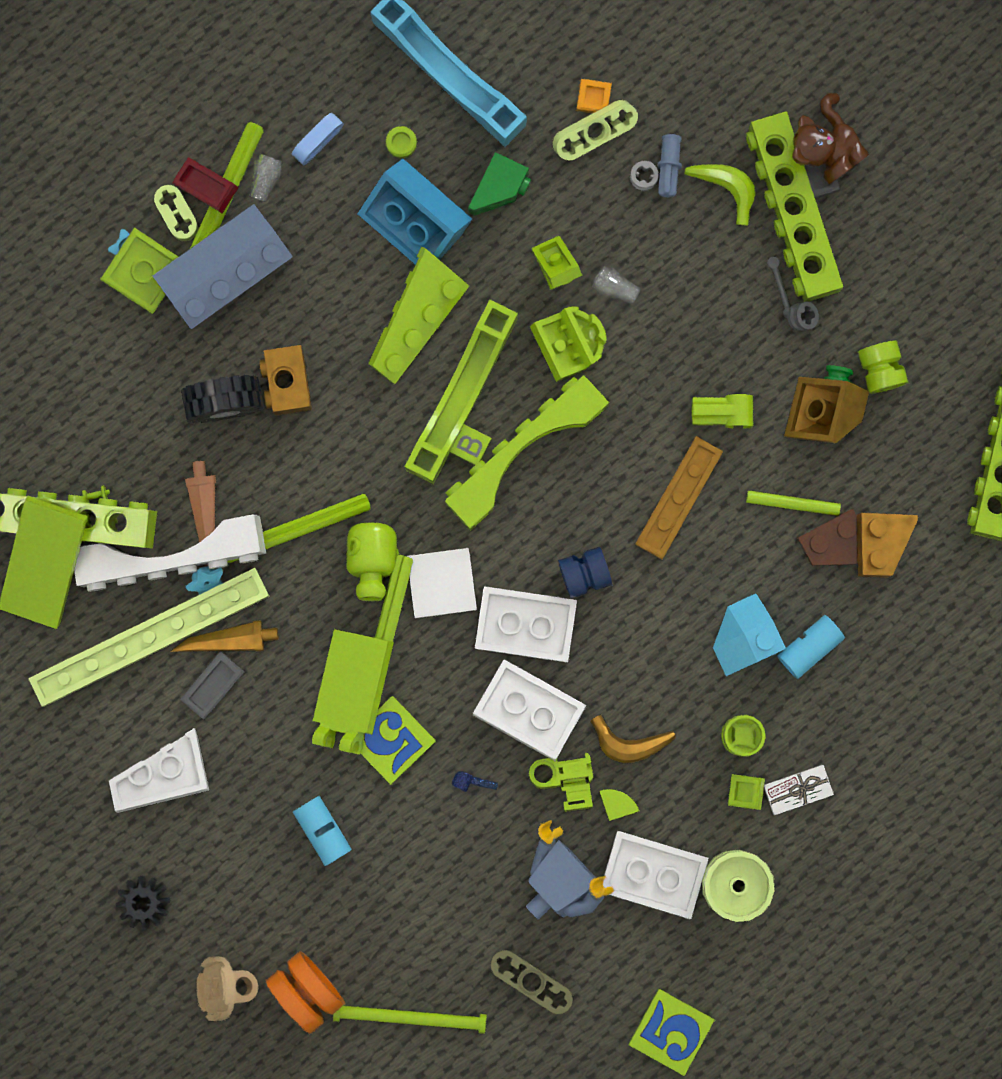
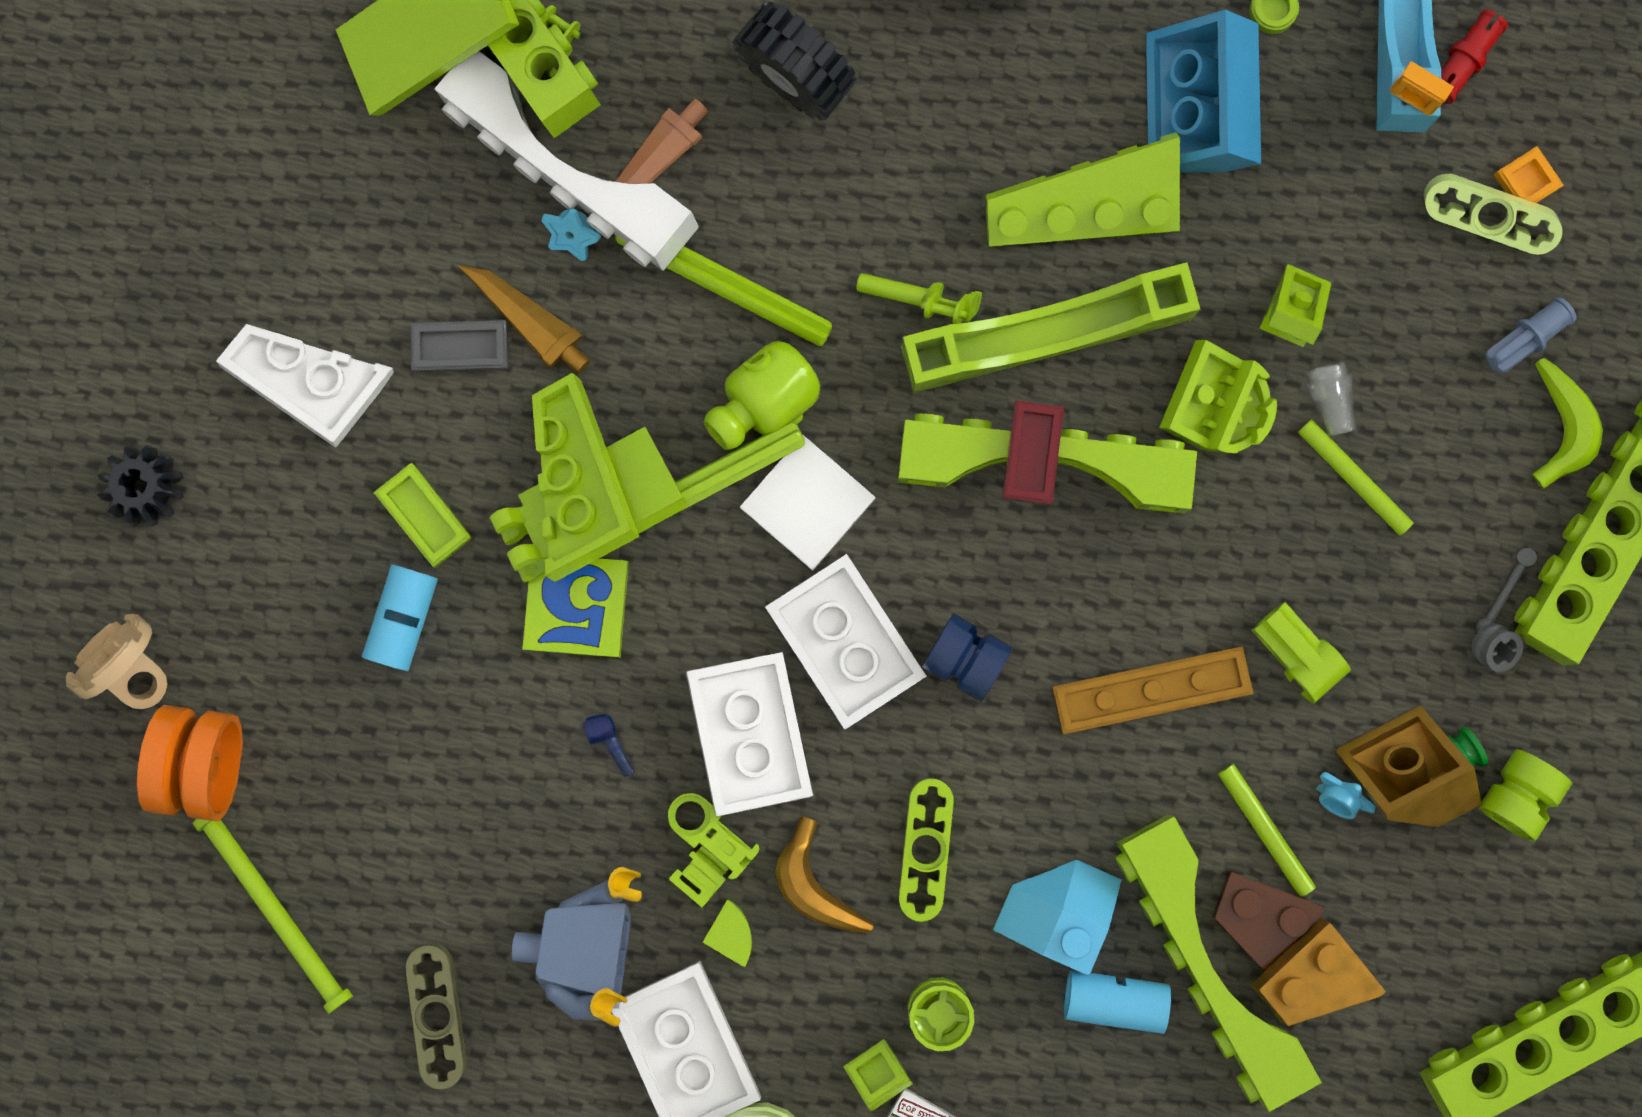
camera: 55 degrees right, 0 degrees up
(148, 637) = (451, 225): yellowish green plate -> none
(280, 776) = (423, 515): none -> lime tile
(286, 361) = (873, 146): pearl gold brick -> none
(341, 687) = (579, 484): none -> lime wing
(391, 438) = (926, 298): none -> lime piece
(470, 445) = (995, 393): lime tile -> none
(500, 185) = (1328, 161): green slope -> none
(506, 117) = (1420, 88): none -> light orange tile
(508, 70) = (1470, 53): none -> red pin
(515, 454) = (1033, 453): none -> dark red tile
(643, 185) = (1503, 310): light grey bush -> none
(649, 651) = (910, 885): none -> lime beam
(661, 309) = (1355, 477): none -> lime bar
(769, 568) = (1166, 870): none -> lime arch
(809, 453) = (1342, 797): none -> medium azure plate

